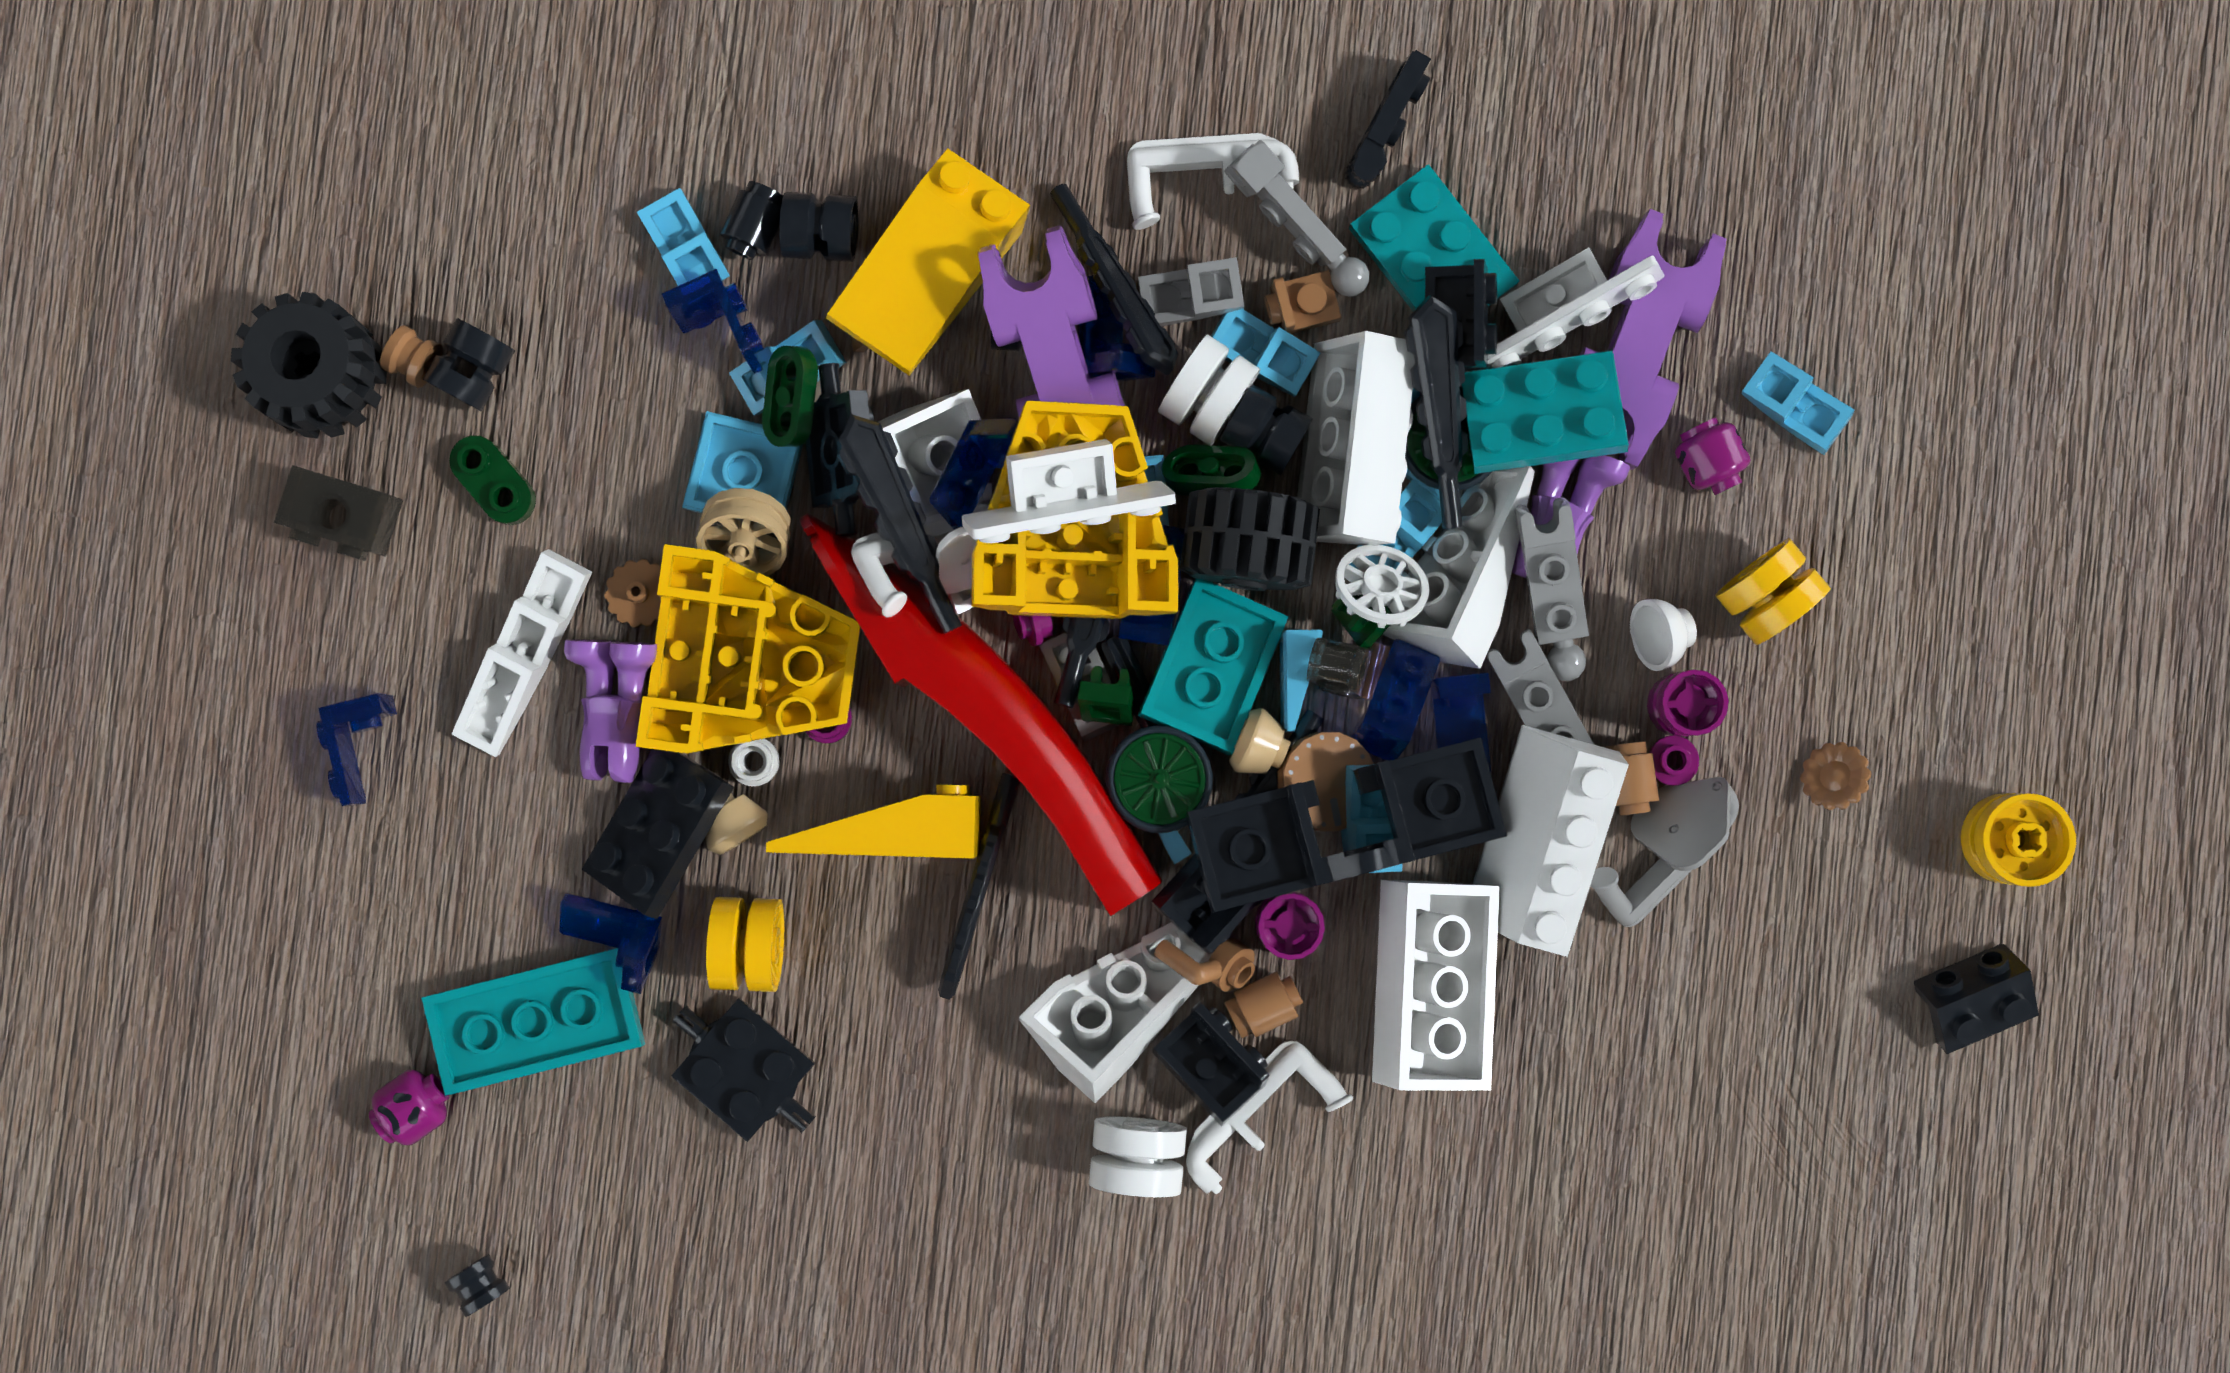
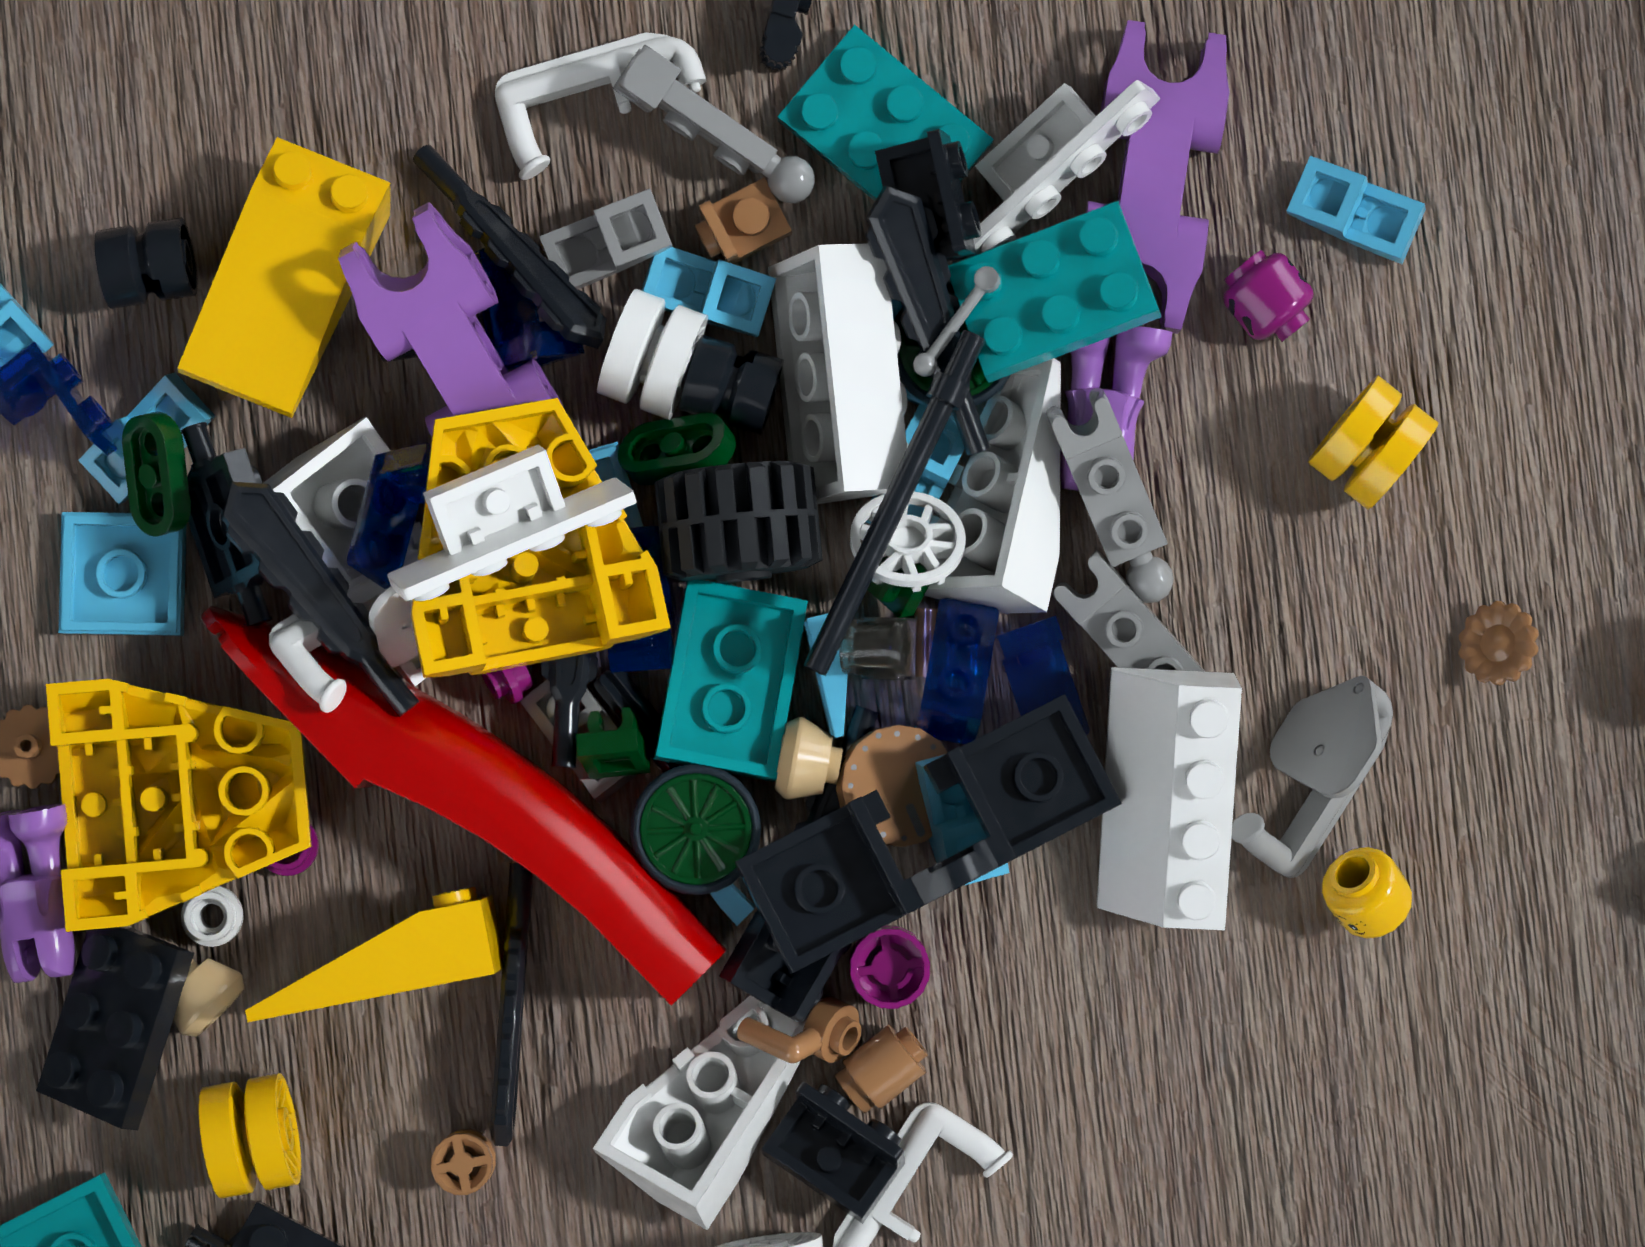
camera: 10 degrees left, 0 degrees up
(618, 927) = (104, 1150): clear blue bracket -> none
(746, 520) = (138, 637): tan wheel -> none
(753, 220) = (65, 273): black brick -> none
(902, 1012) = (454, 1174): none -> medium nougat wheel
(1435, 985) = (1079, 999): white slope -> none
(1440, 475) = (945, 394): none -> black bar
(1493, 391) = (986, 281): none -> light grey hinge
(1640, 779) = (1263, 701): medium nougat brick -> none
(1661, 633) = (1254, 520): white piece -> none
(1686, 952) = (1367, 892): none -> yellow head
(1687, 703) = (1302, 597): magenta wheel -> none
(1689, 755) = (1283, 668): magenta plate -> none

